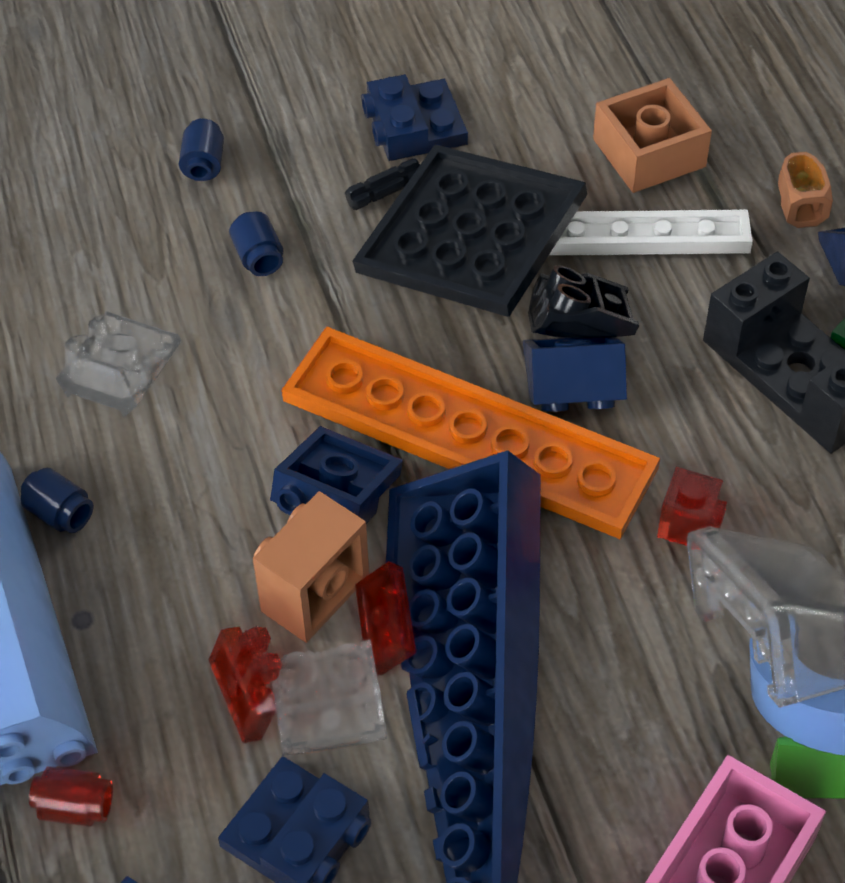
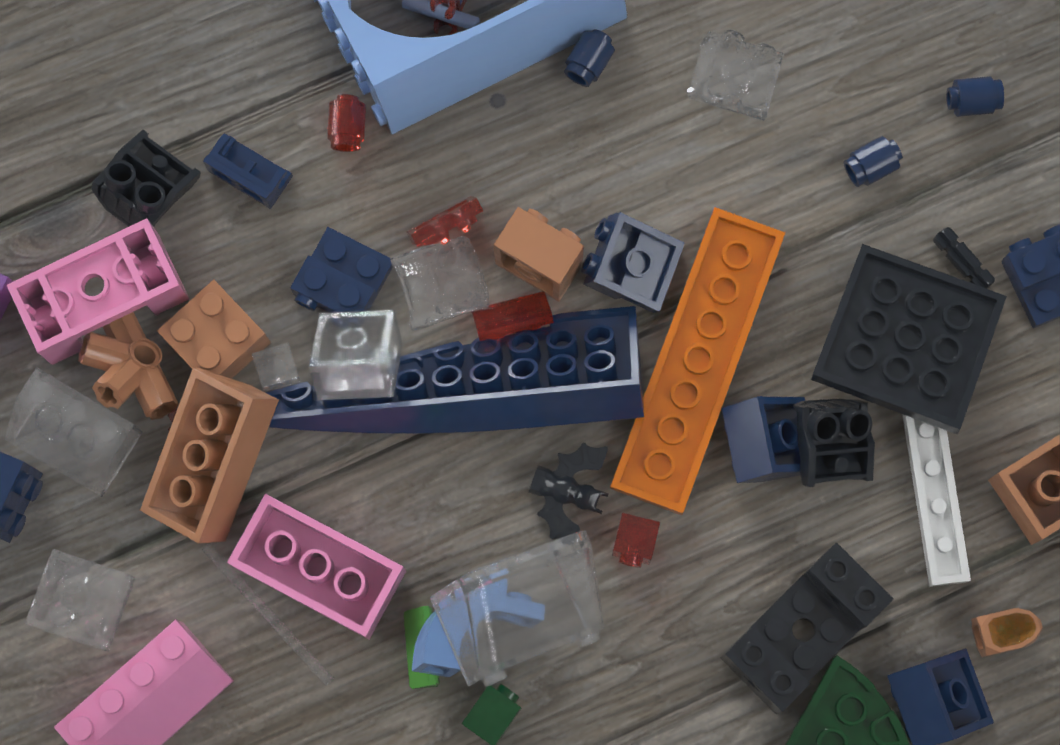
camera: 85 degrees right, 25 degrees up
(420, 794) = (356, 355): none -> clear brick
(619, 586) = (561, 488): none -> black animal

